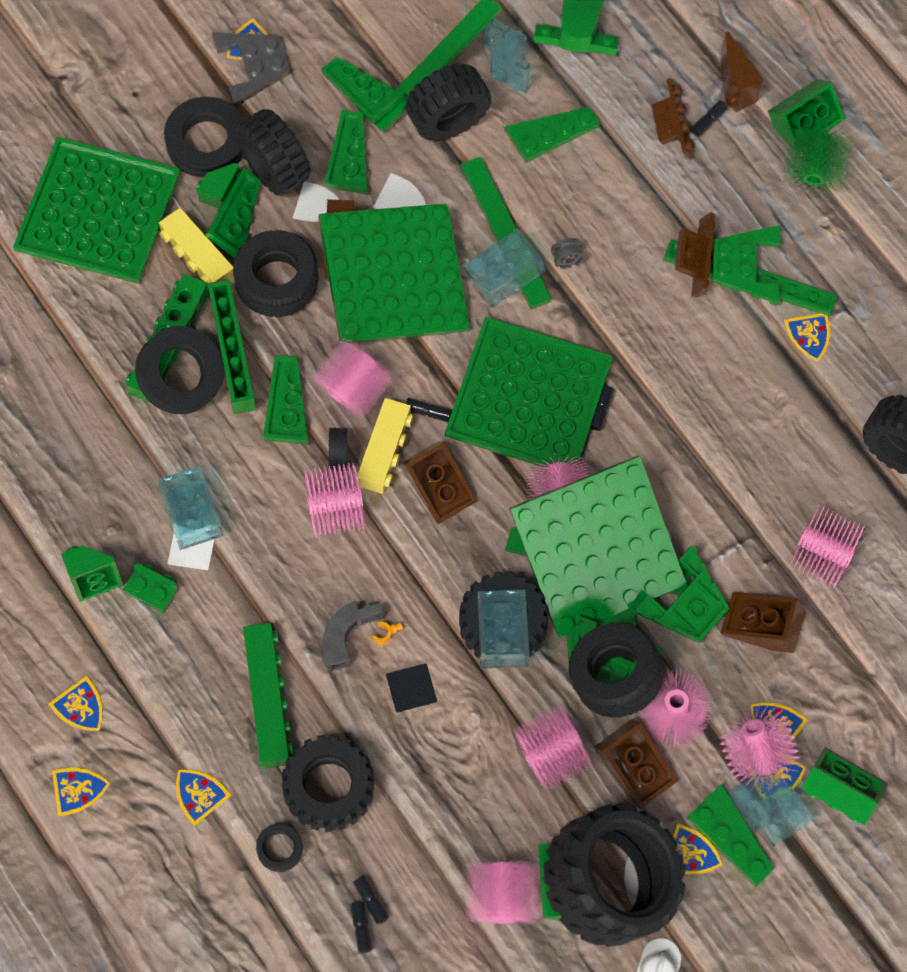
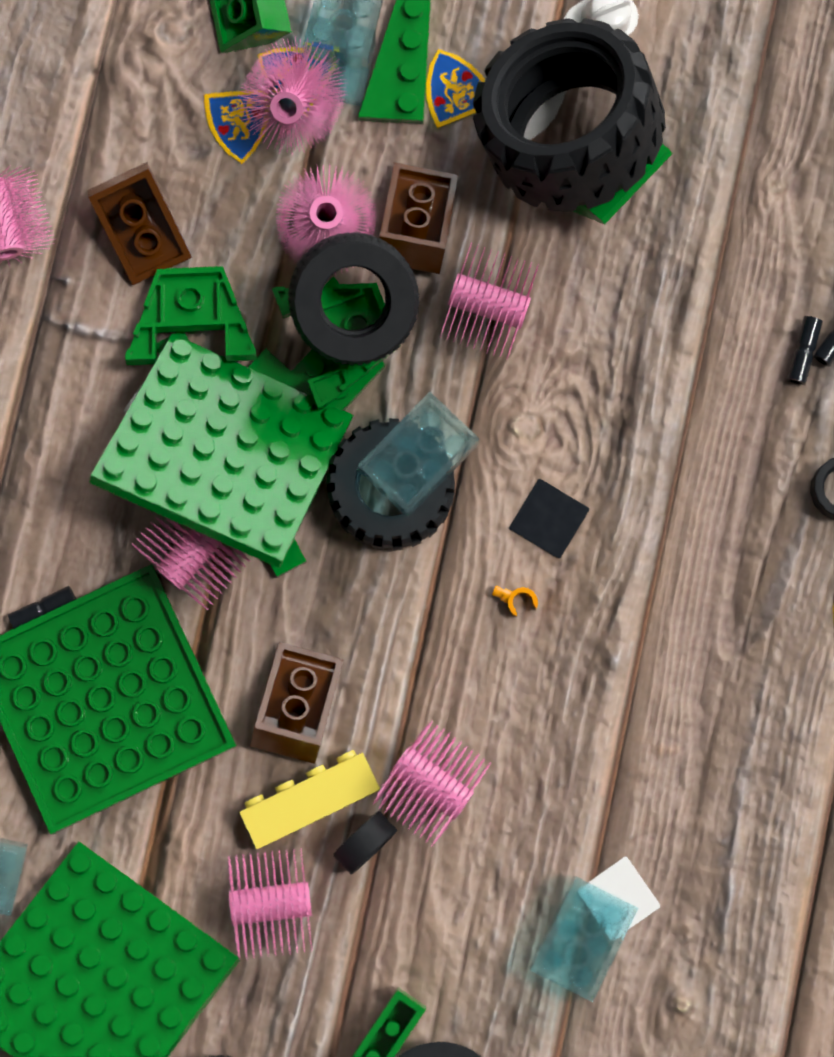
camera: 130 degrees left, 15 degrees up
(91, 571) = (768, 970): green slope -> none
(151, 587) = (706, 894): green bracket -> none
(266, 695) = (704, 653): green brick -> none
(285, 406) = (366, 954): green wing -> none
(320, 753) = (763, 461): black tyre -> none
(340, 627) = (561, 649): flat silver arch -> none
(432, 411) = (219, 792): black piece -> none
(502, 894) = (684, 216): bright pink piece -> none

